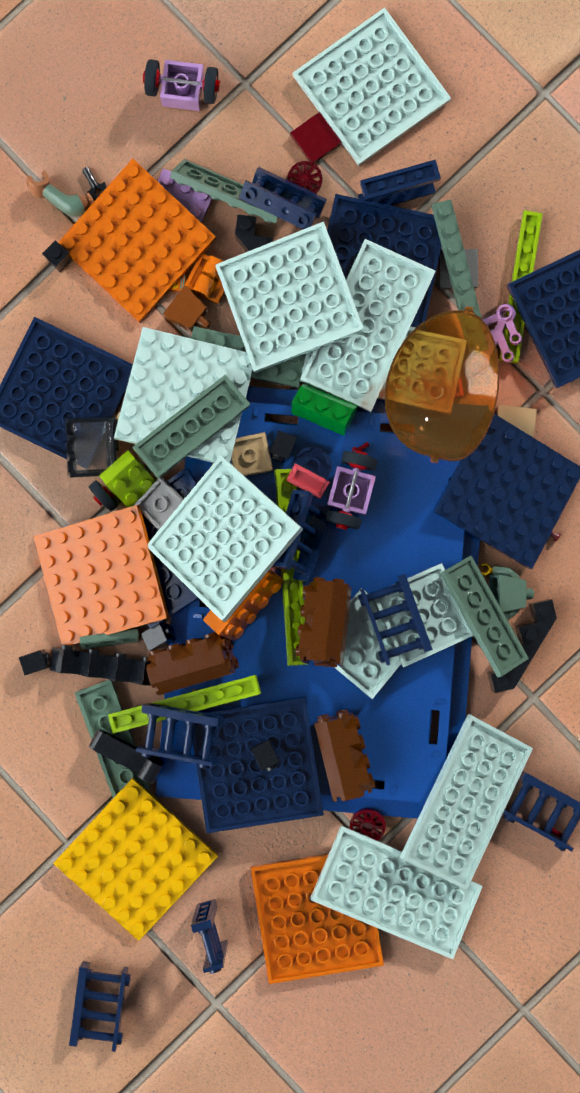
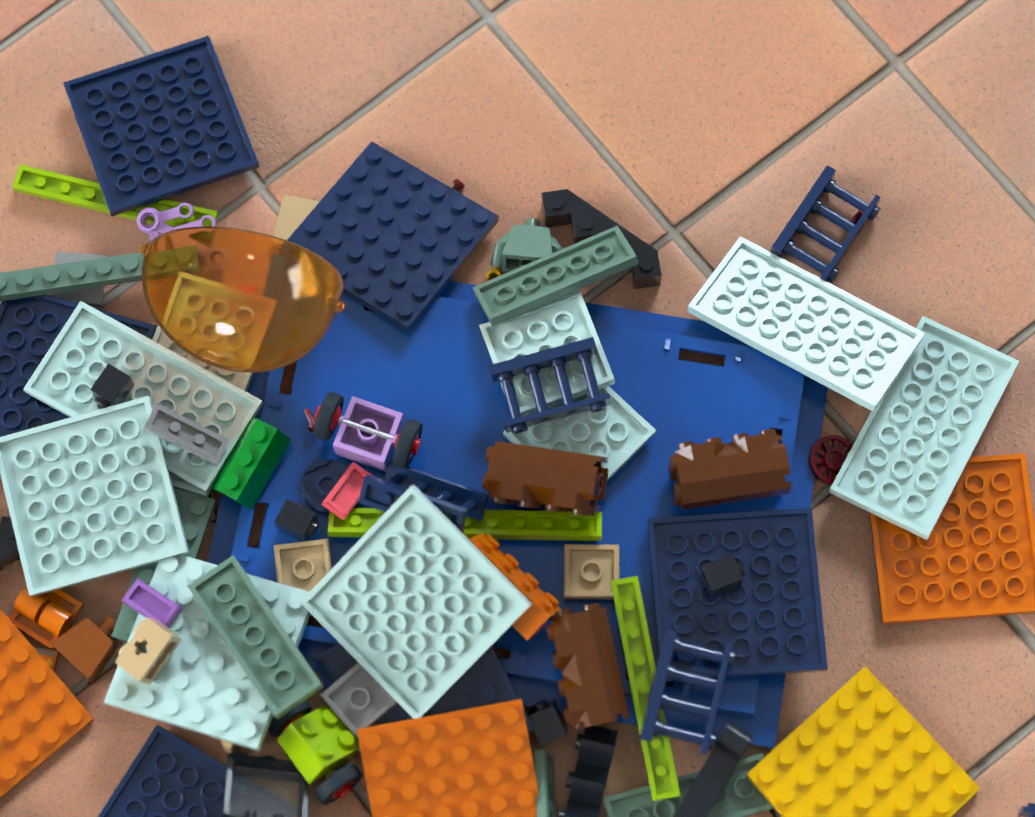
camera: 85 degrees left, 15 degrees down
(176, 352) = (160, 645): none -> tan brick
(204, 924) = (952, 676): dark blue fence -> none
(212, 351) = (151, 603): none -> medium lavender tile
(265, 659) = (590, 571): none -> tan tile
(337, 359) = (186, 434): none -> light grey plate
(368, 301) = (111, 387): none -> black brick

